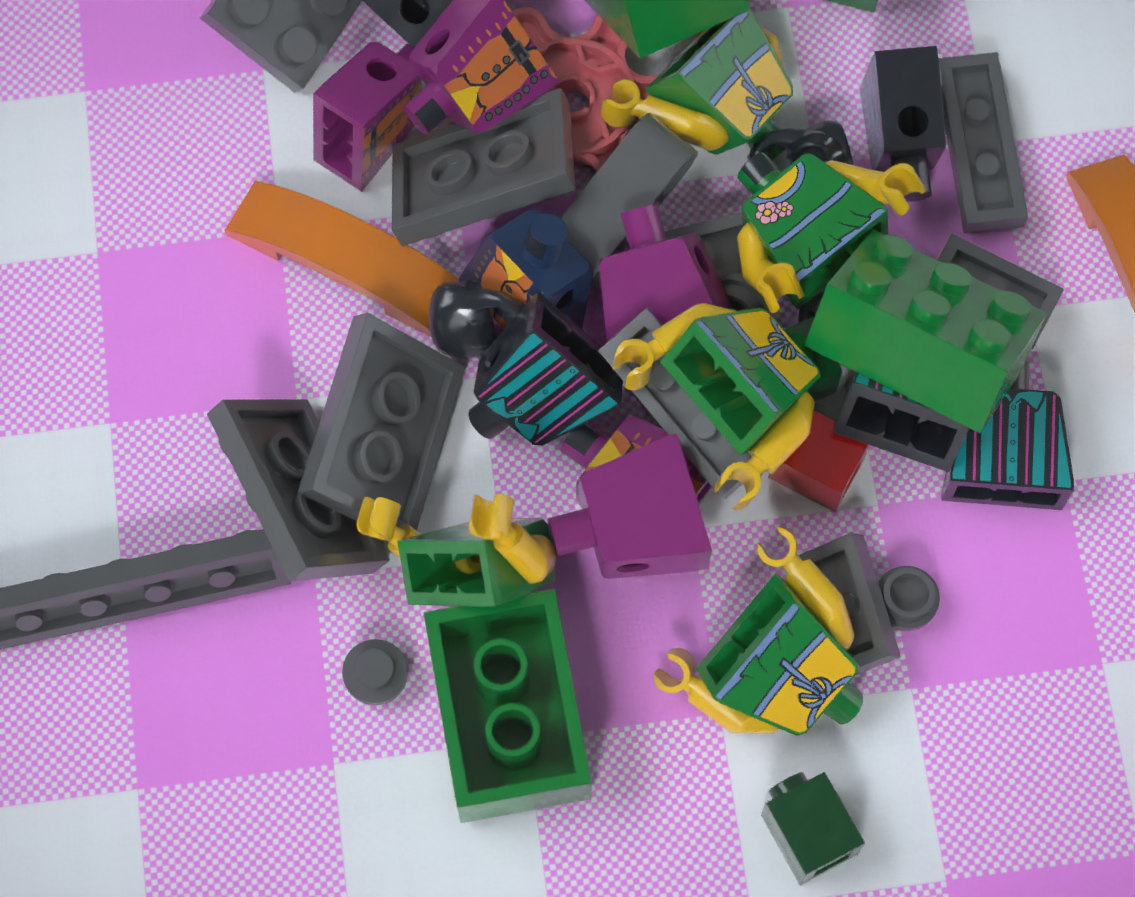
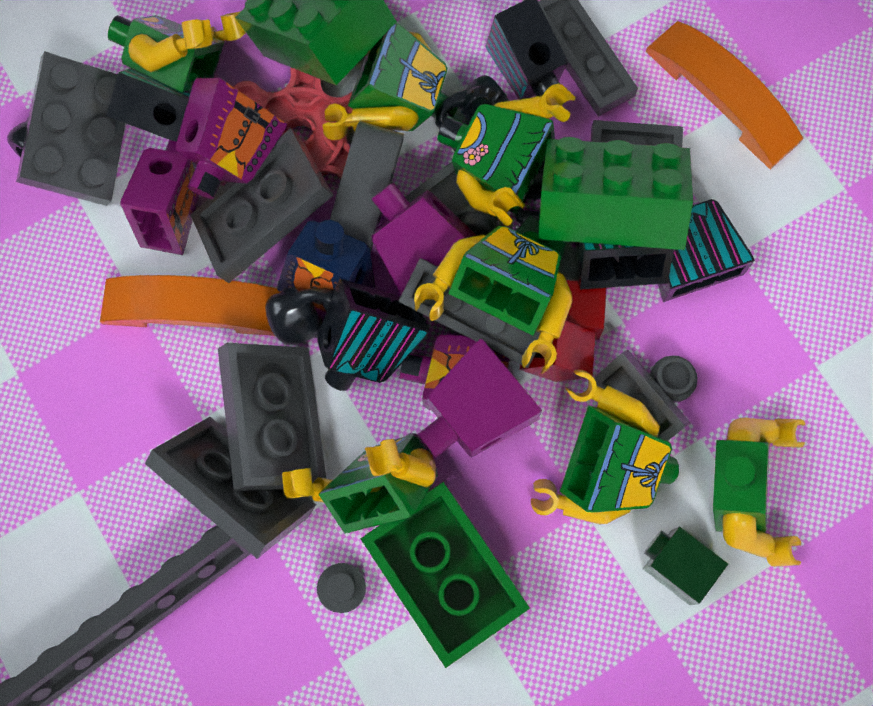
camera: 20 degrees left, 5 degrees up
(785, 500) = (573, 351): none -> red brick
(930, 760) = (743, 487): none -> torso

